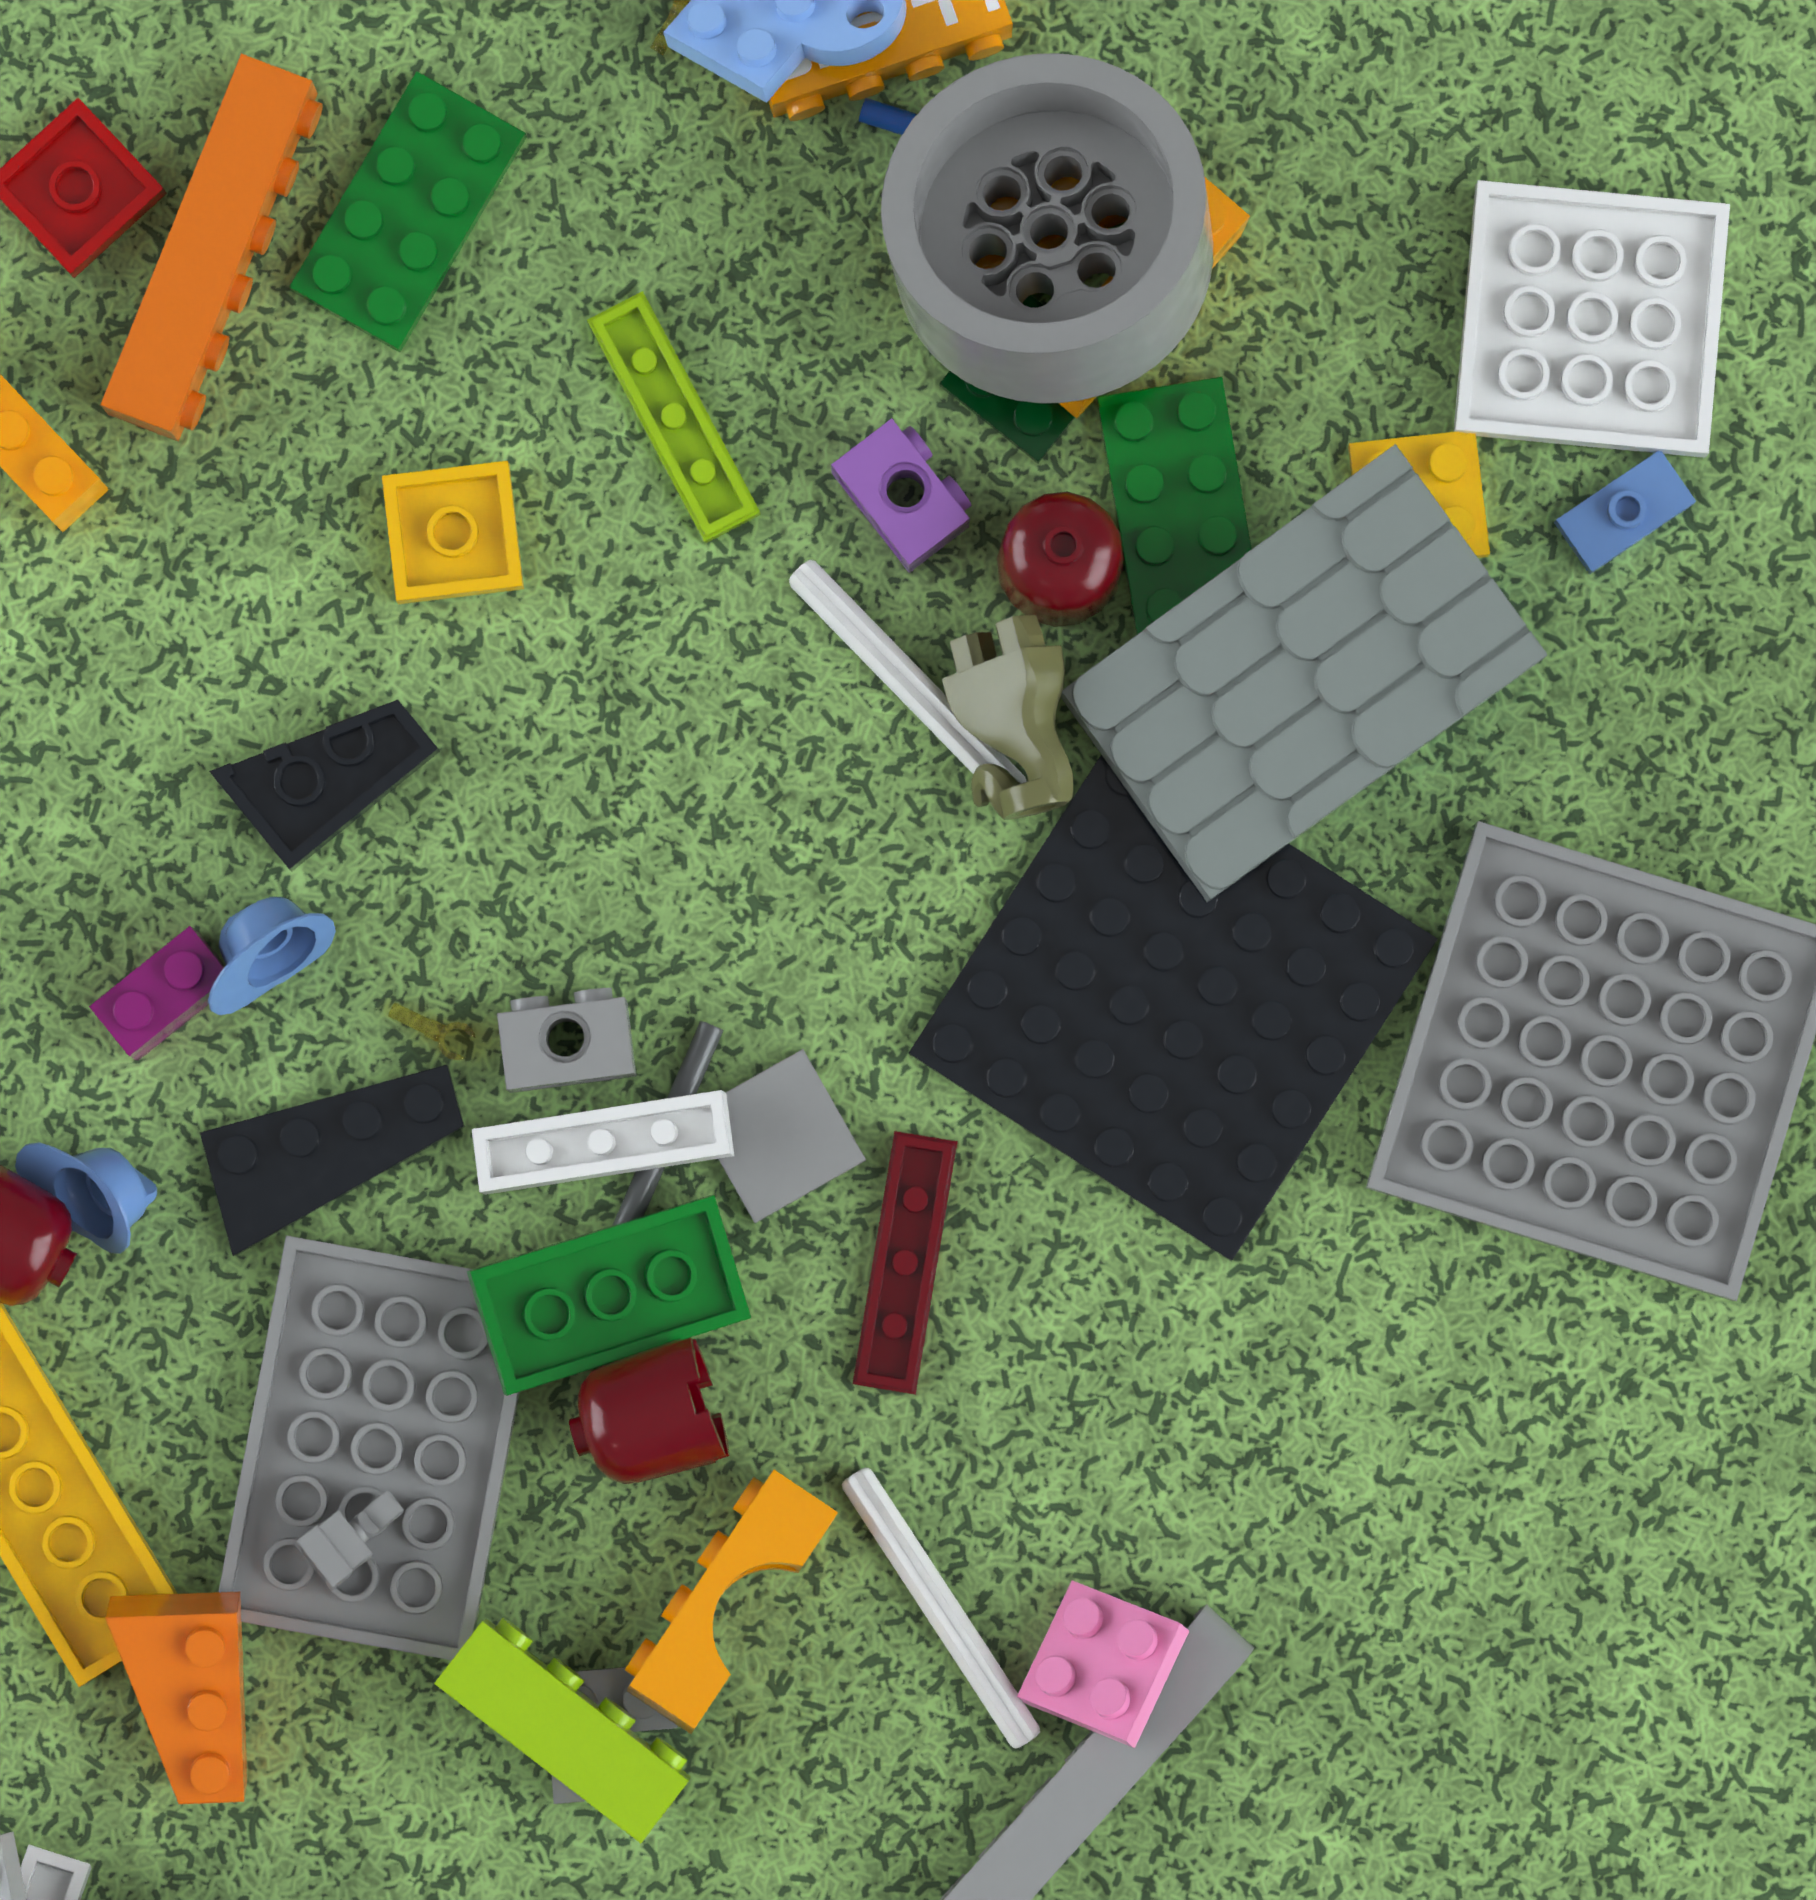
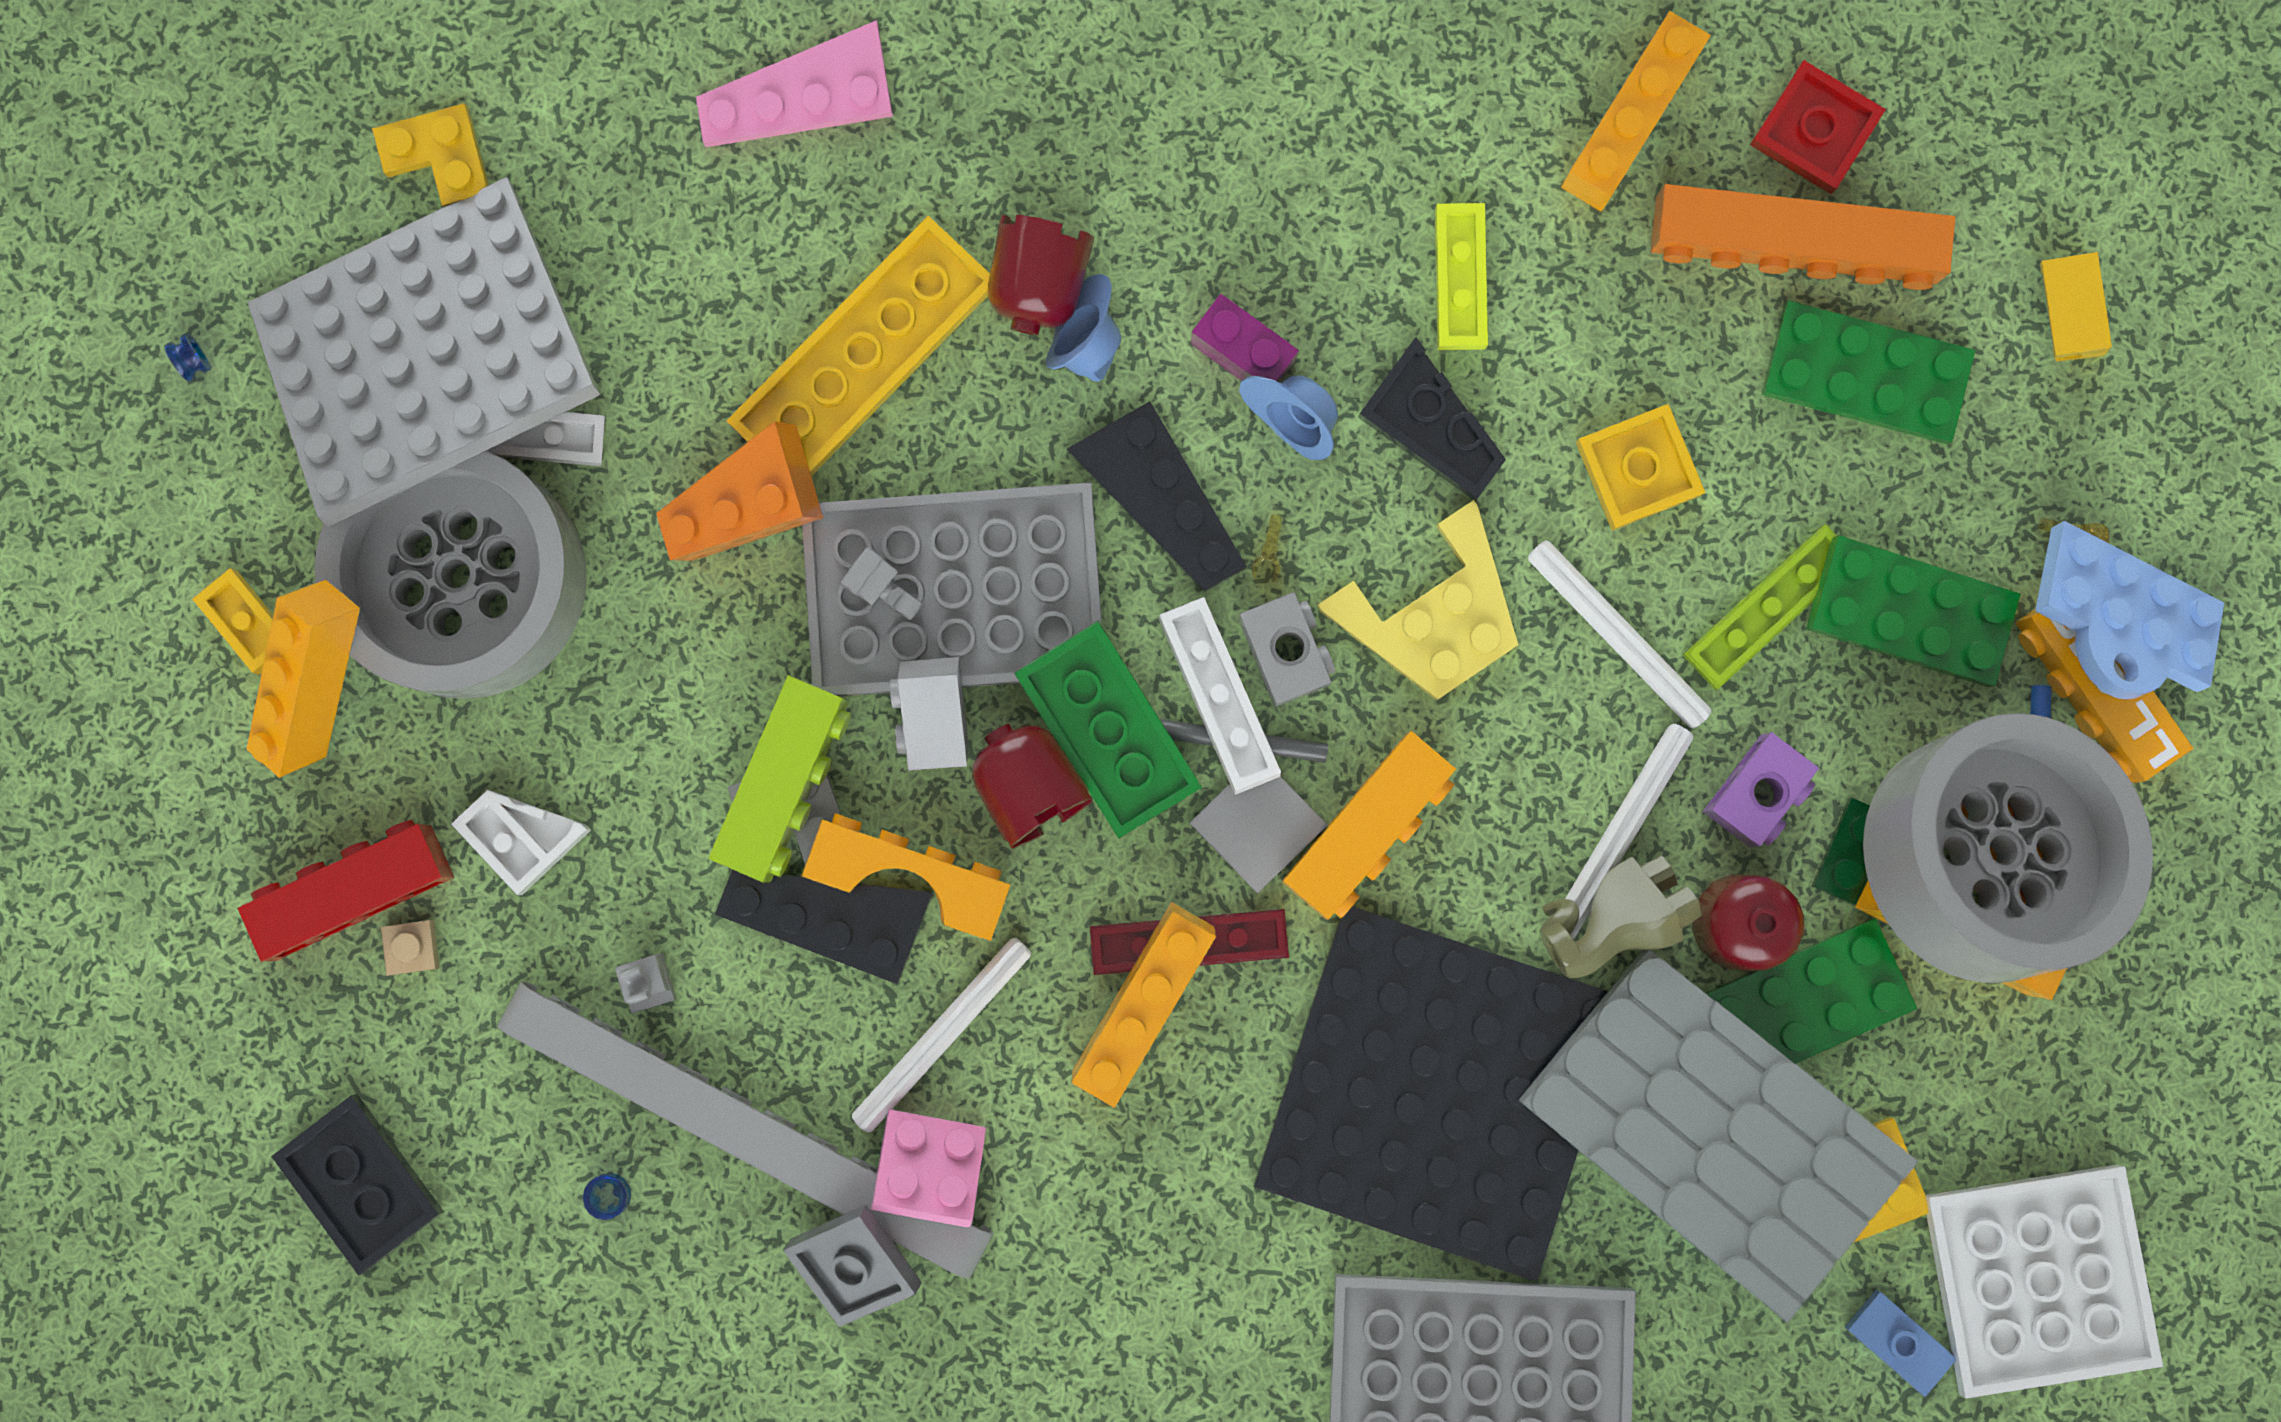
camera: 80 degrees right, 0 degrees up
(146, 692) = (1461, 276): none -> neon yellow plate
(530, 1514) = (931, 713): none -> brick
(595, 830) = (1448, 629): none -> light yellow wing
(657, 616) = (1619, 634): none -> white axle
(726, 242) = (1913, 611): none -> green plate
(780, 1676) = (863, 929): none -> black wing
(818, 997) = (1369, 826): none -> light orange brick
(967, 1340) = (1143, 1004): none -> light orange brick
(1200, 1790) = (852, 1266): none -> plate

